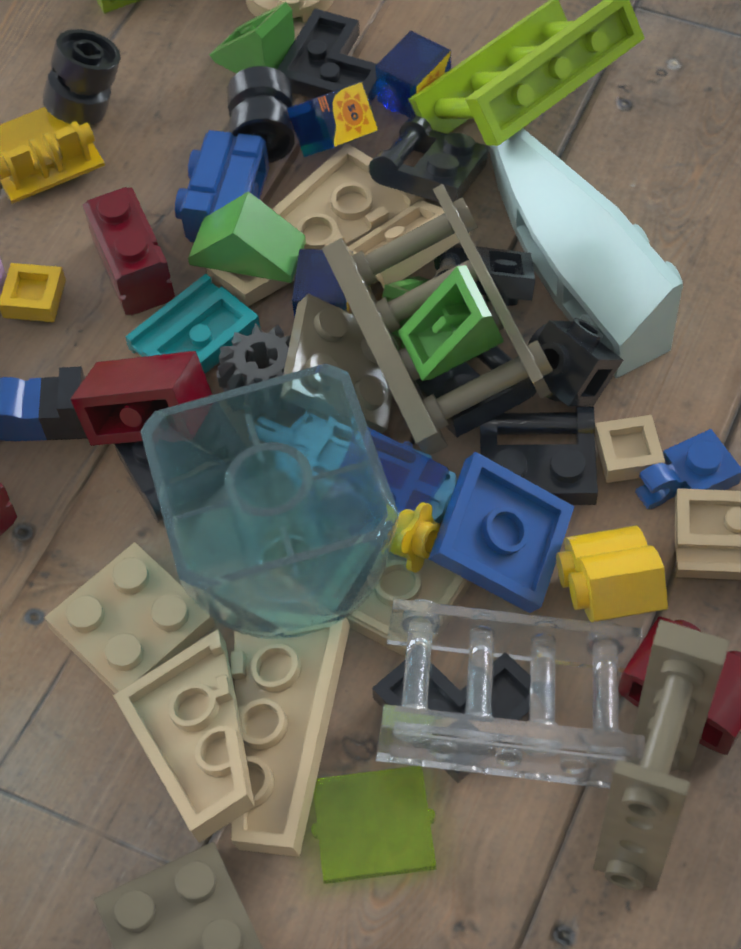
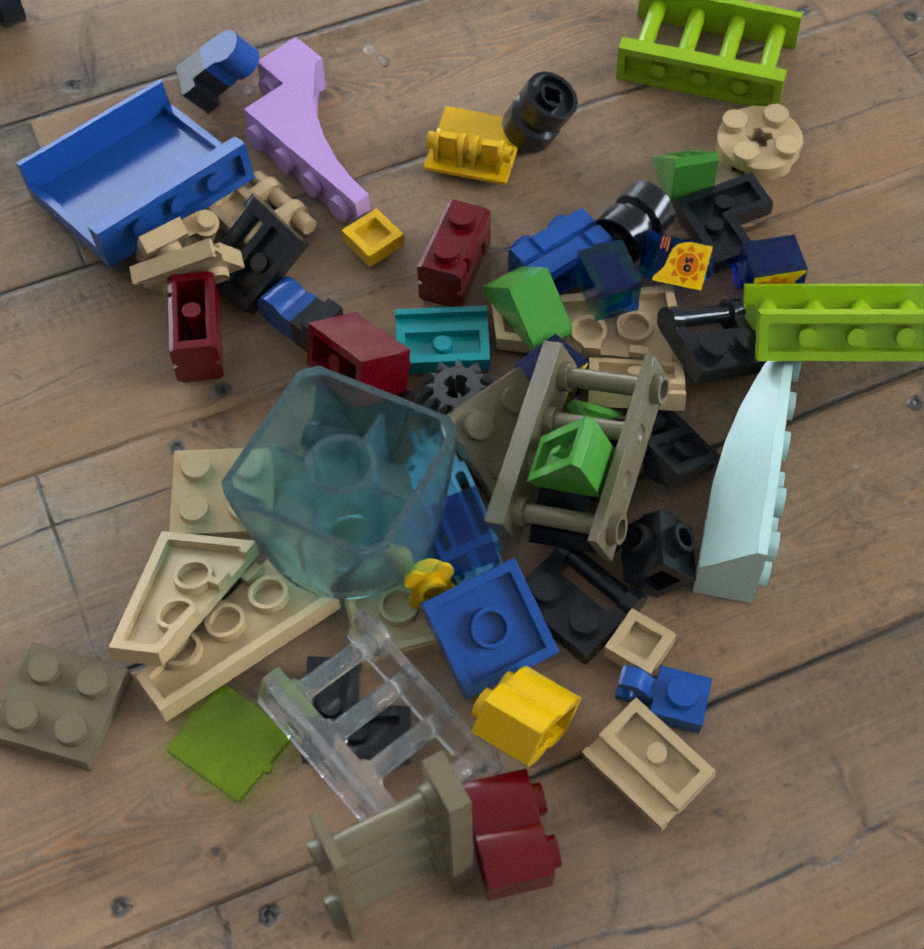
camera: 40 degrees right, 0 degrees up
(298, 171) = (608, 279): none -> clear blue brick

